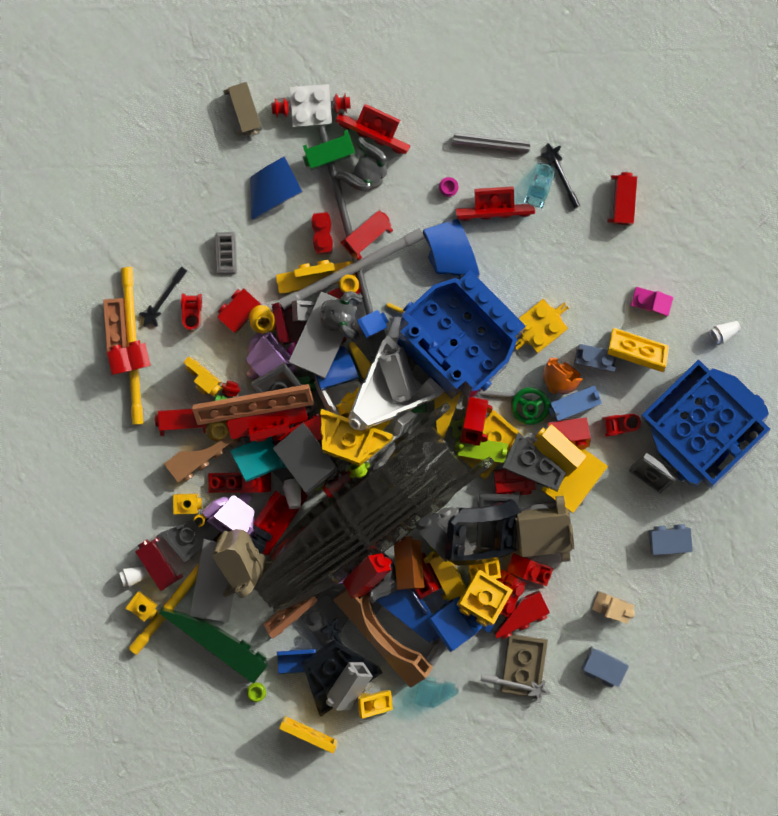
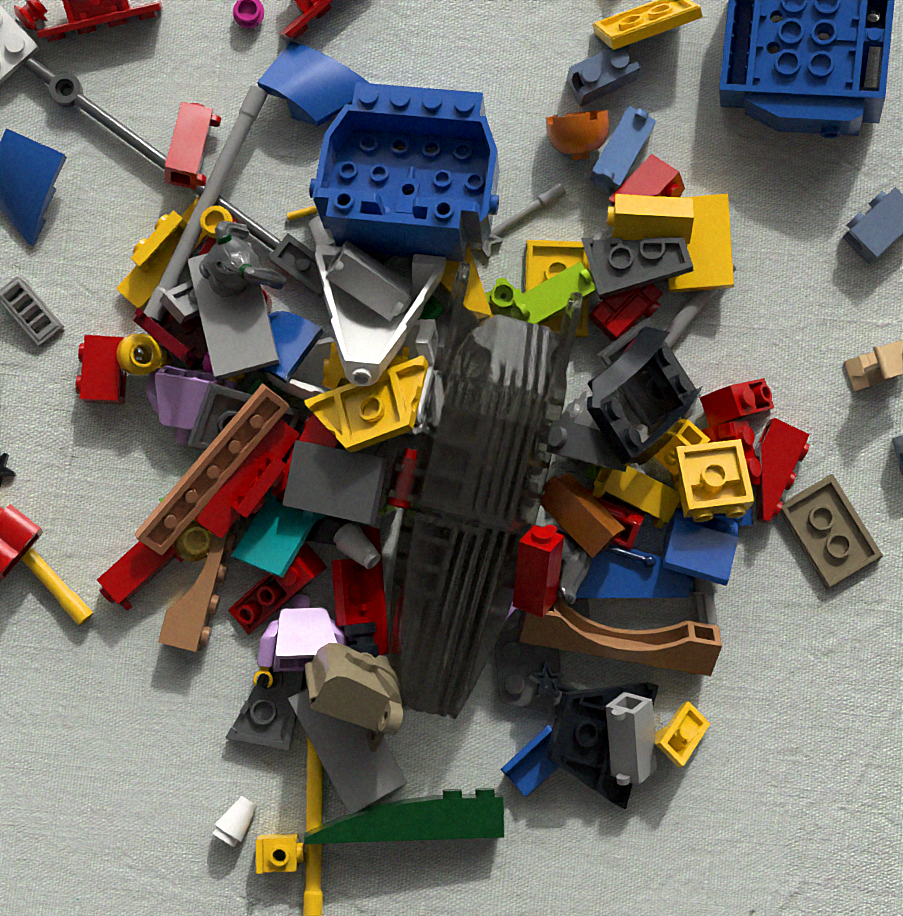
camera: 40 degrees left, 5 degrees down
(157, 564) = (253, 781): dark red brick -> none
(178, 503) = (220, 680): yellow brick -> none
(191, 310) = (39, 416): red piece -> none
(205, 380) = (127, 490): yellow plate -> none
(230, 388) = (170, 476): red plate -> none
(256, 692) = (516, 845): lime plate -> none
(284, 617) = (477, 710): nougat plate -> none
(308, 734) = (630, 845): yellow tile -> none
(322, 228) = (134, 190): red brick -> none
(329, 152) = (60, 80): green brick -> none
(358, 471) = (416, 439): lime plate -> none
(361, 360) = (308, 308): yellow slope -> none
(369, 169) = (129, 62): dark grey hair -> none
(373, 323) = (285, 248): blue slope -> none
(434, 693) = (747, 659): clear light blue slope -> none
(474, 421) = (516, 267): red brick -> none
(527, 412) = (579, 175): green piece -> none
(535, 690) = (871, 549): light grey piece -> none
(542, 326) = (505, 88): yellow plate -> none
(545, 531) = (721, 332): dark tan piece -> none
(619, 424) = (697, 133): red piece -> none
(653, 473) = (792, 155): dark grey tile -> none

